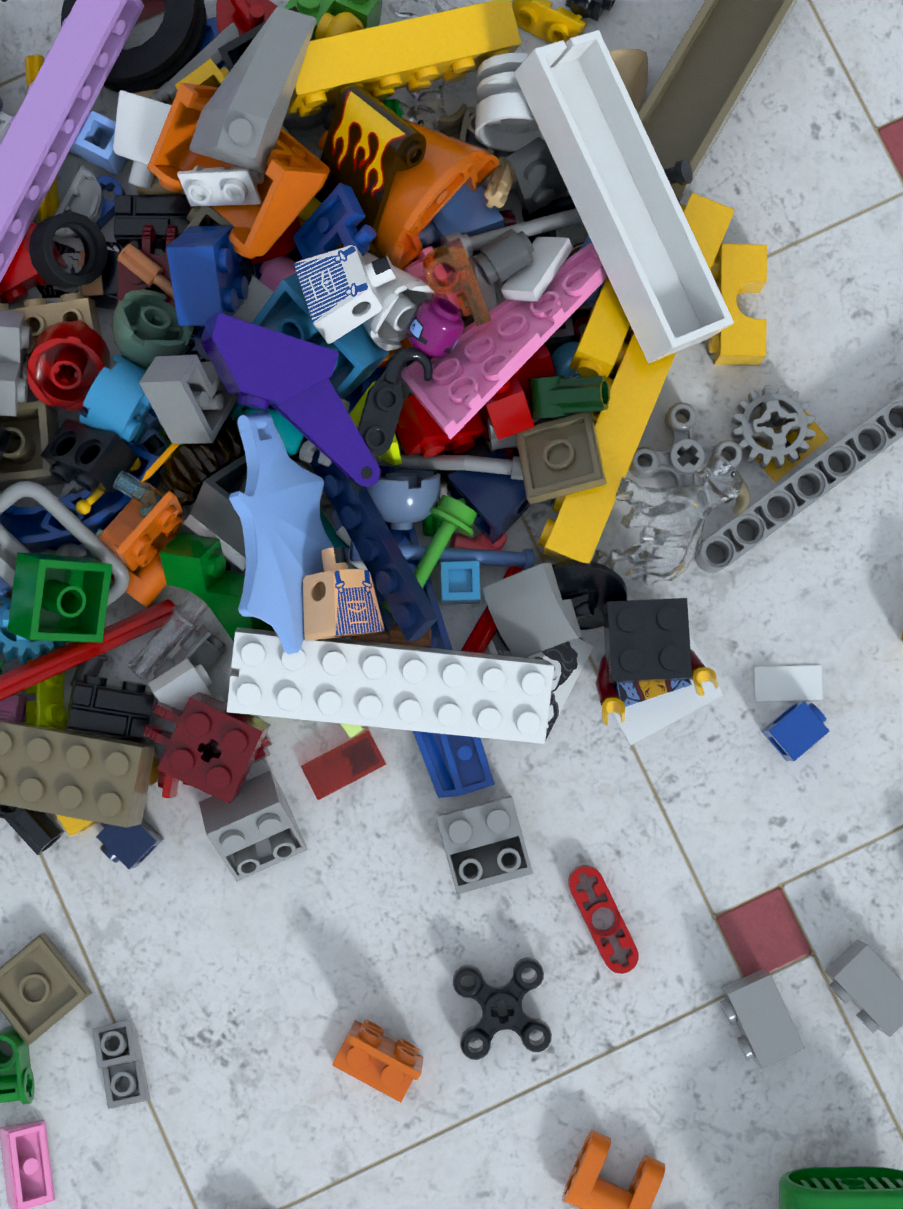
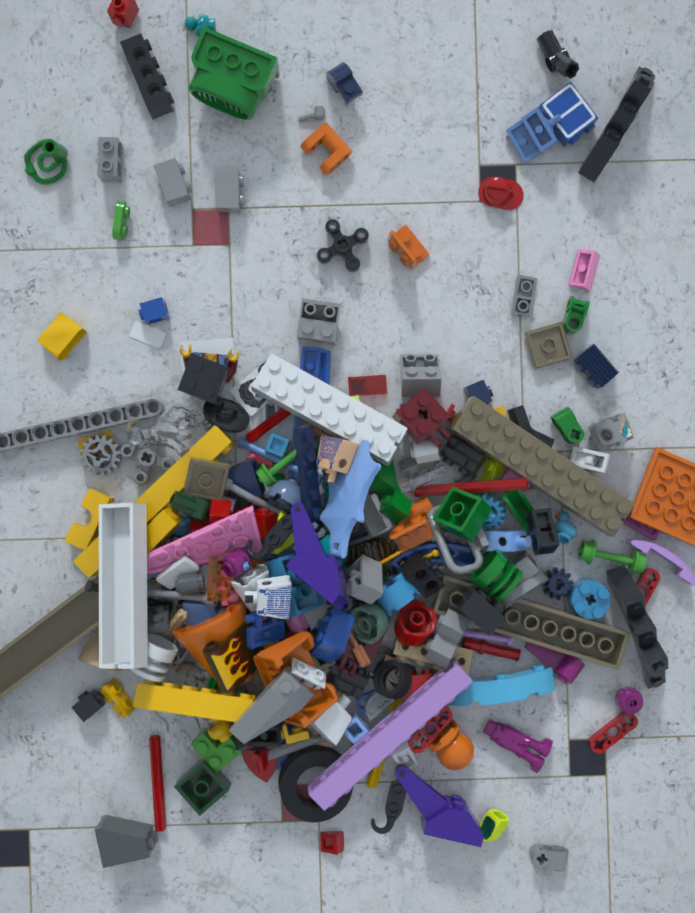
camera: 165 degrees left, 5 degrees up
(142, 492) = (403, 544): clear light blue arm -> none
(531, 611) = (250, 416): light grey slope -> none
(625, 940) = (284, 251): red beam -> none

